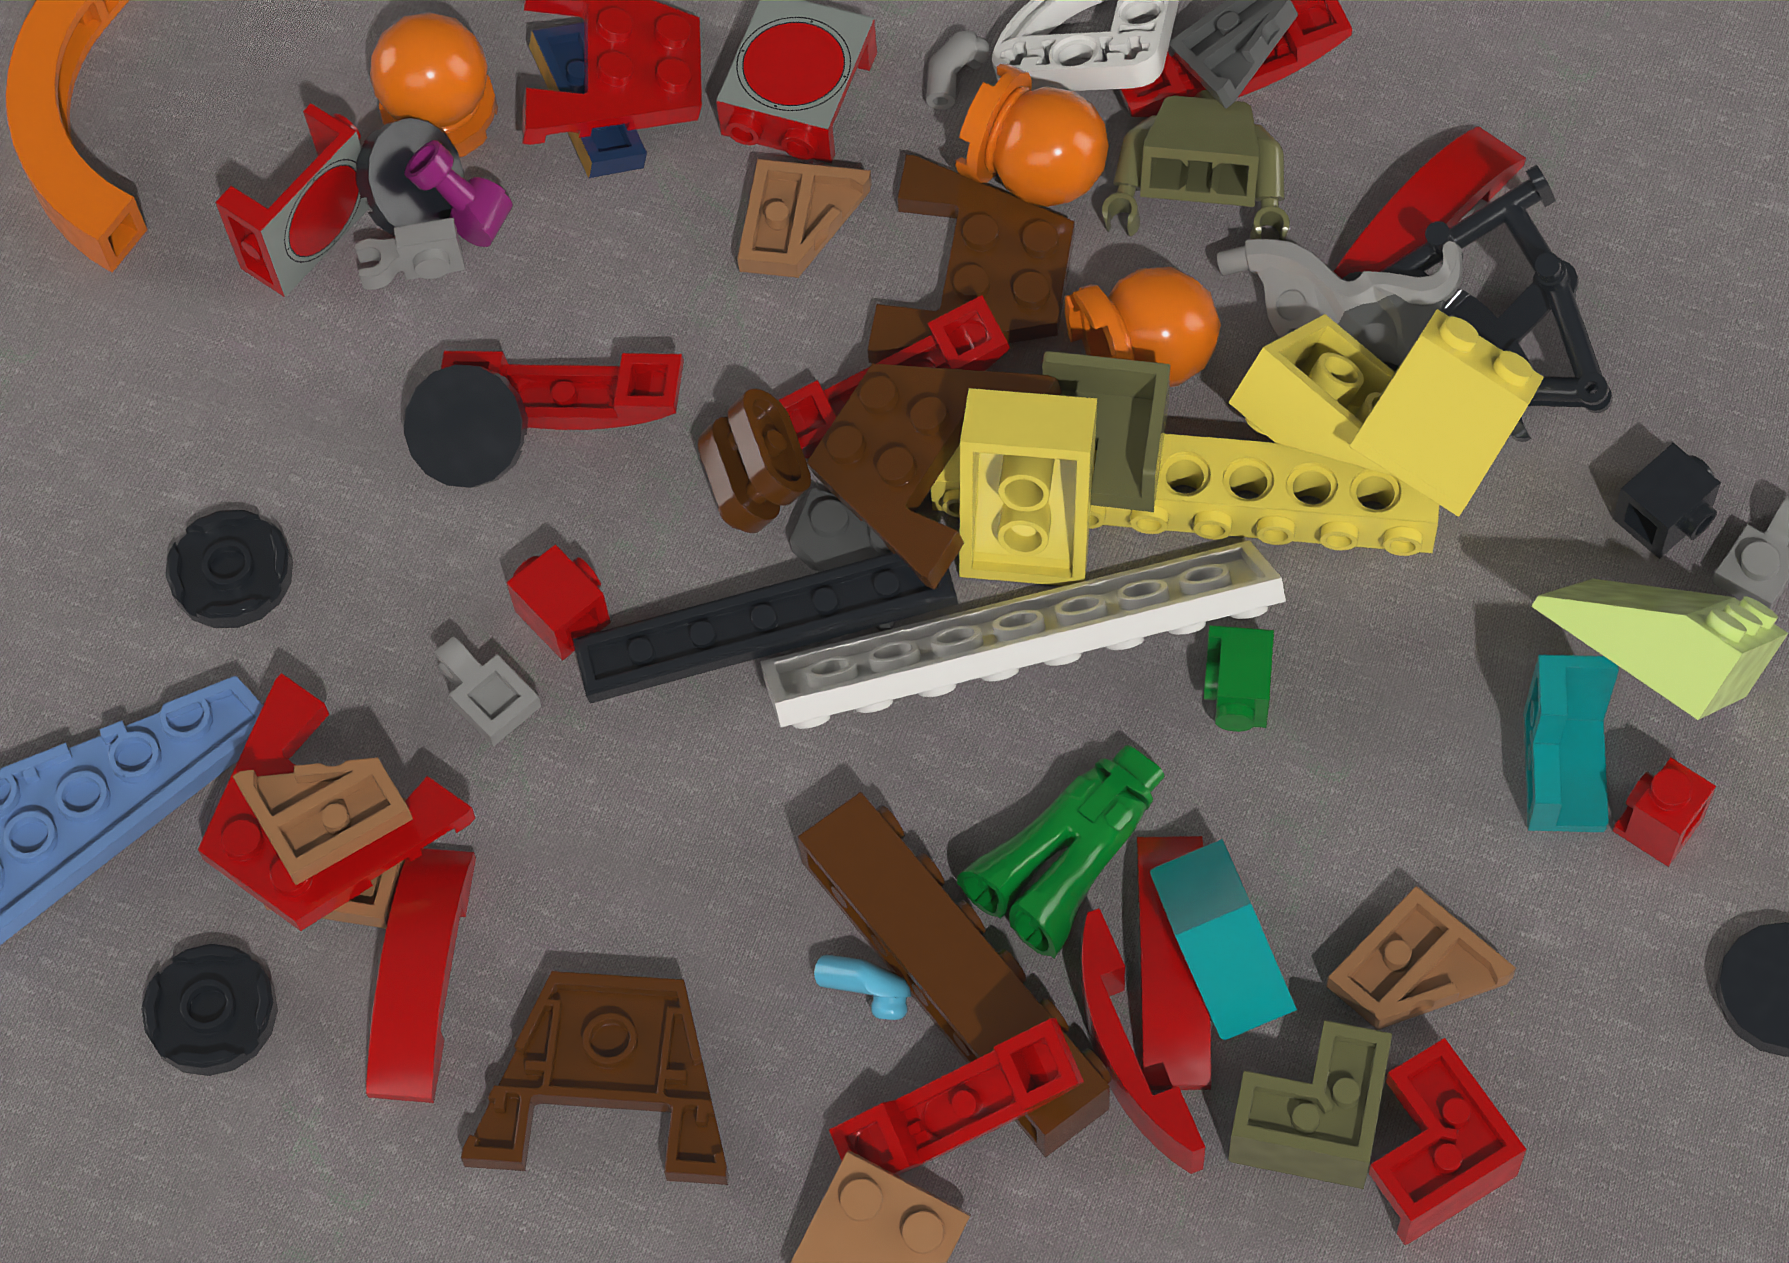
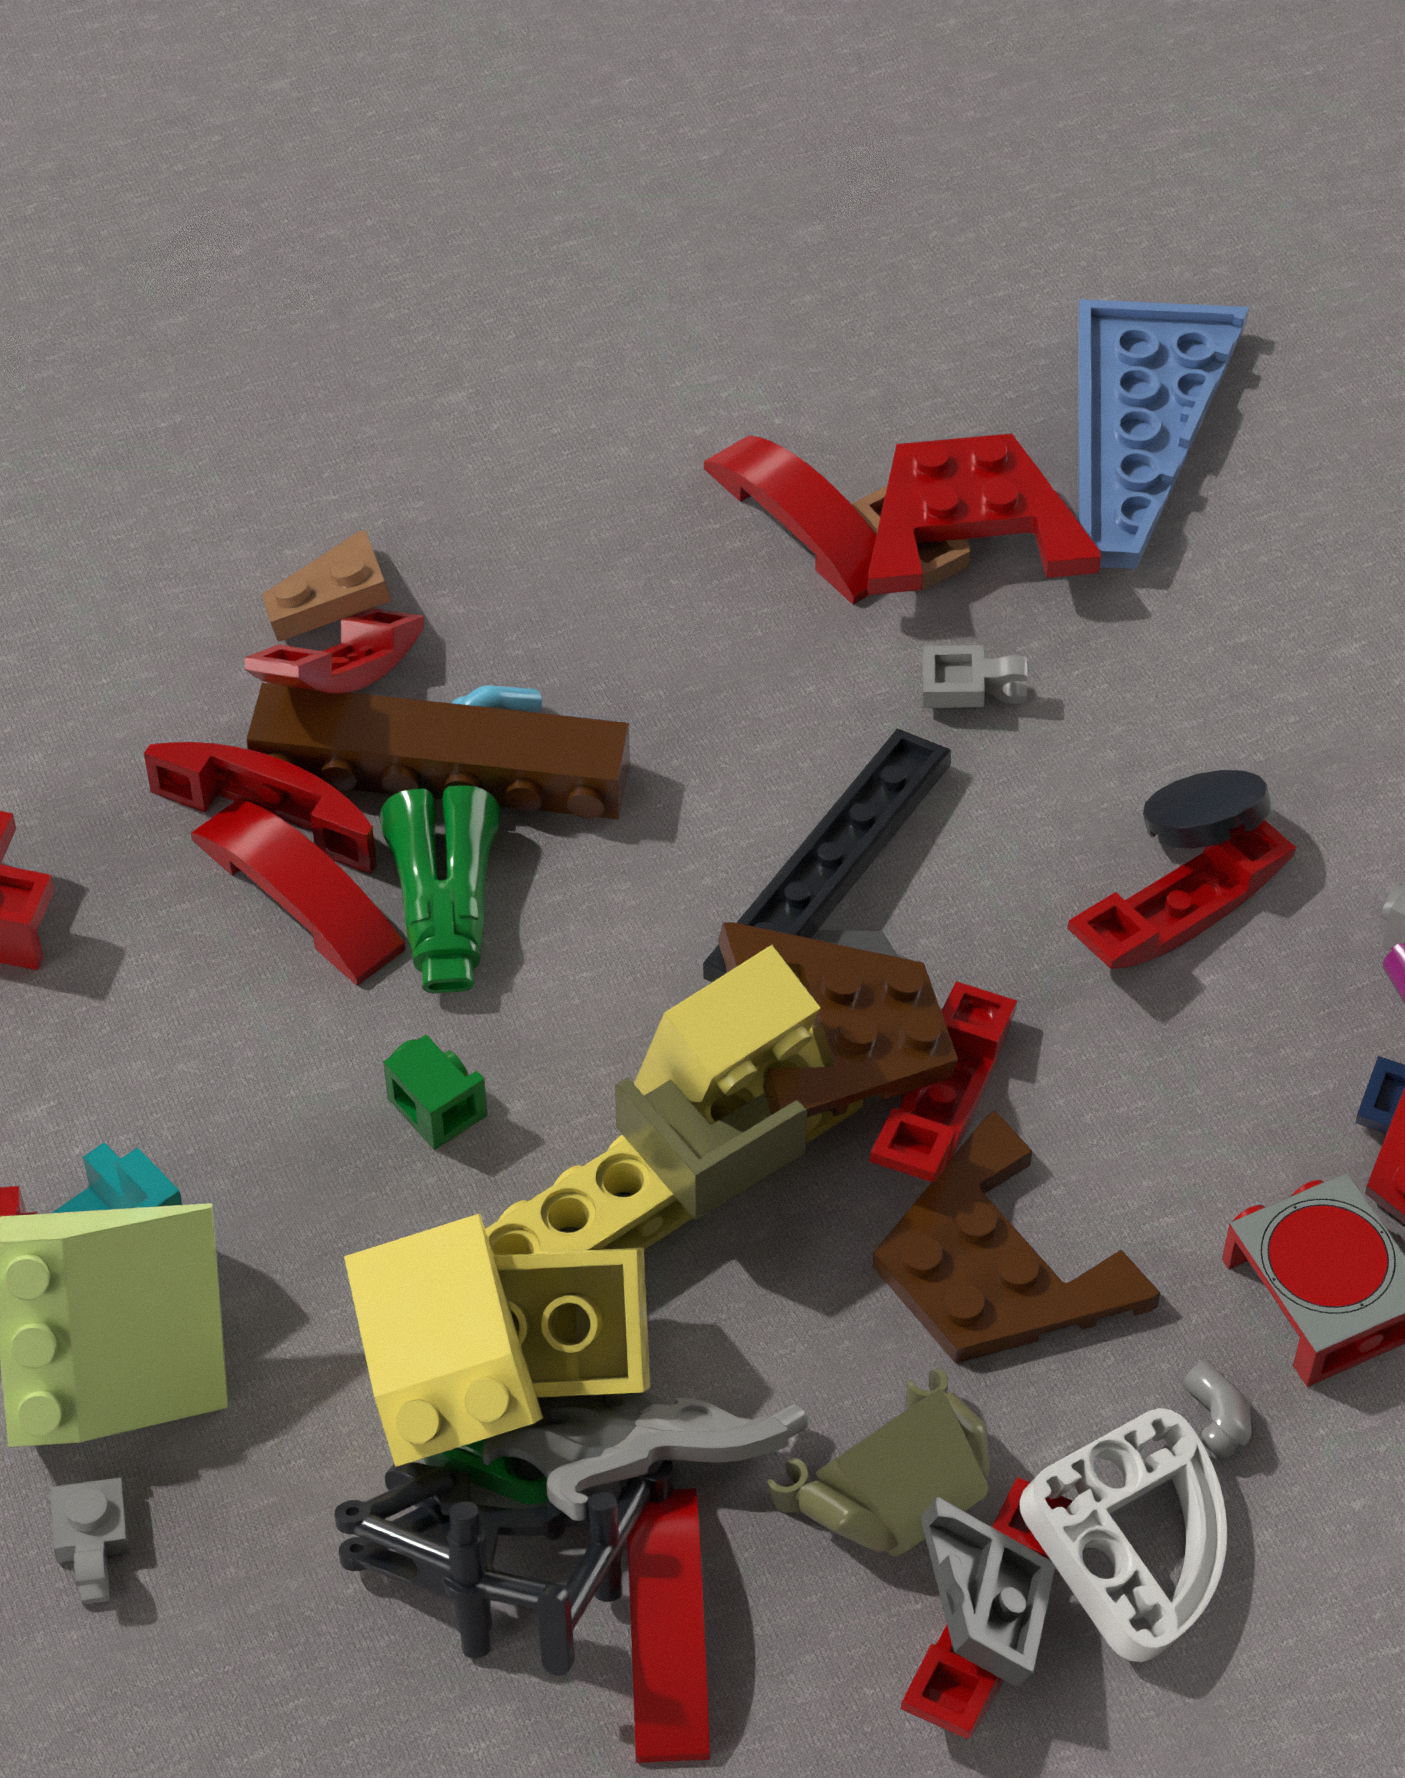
camera: 130 degrees right, 10 degrees down
(209, 1010) = (903, 403): black tile -> none
(229, 569) = (1247, 626): black tile -> none
(323, 811) = (950, 478): medium nougat wing -> none
(558, 599) = (992, 760): red brick -> none
(612, 1048) = (612, 559): reddish brown wing -> none
(753, 461) = (967, 941): reddish brown brick -> none
(796, 213) = (1185, 1169): medium nougat wing -> none
(1021, 632) = (604, 995): white plate -> none
(1039, 141) = (1048, 1355): orange tile -> none
(1148, 318) = (783, 1264): orange tile -> none
(1222, 940) = (268, 879): teal panel -> none
(1317, 1127) = (72, 837): olive panel -> none
(1416, 964) = (108, 1003): medium nougat wing -> none
(1668, 501) = (210, 1501): black brick -> none

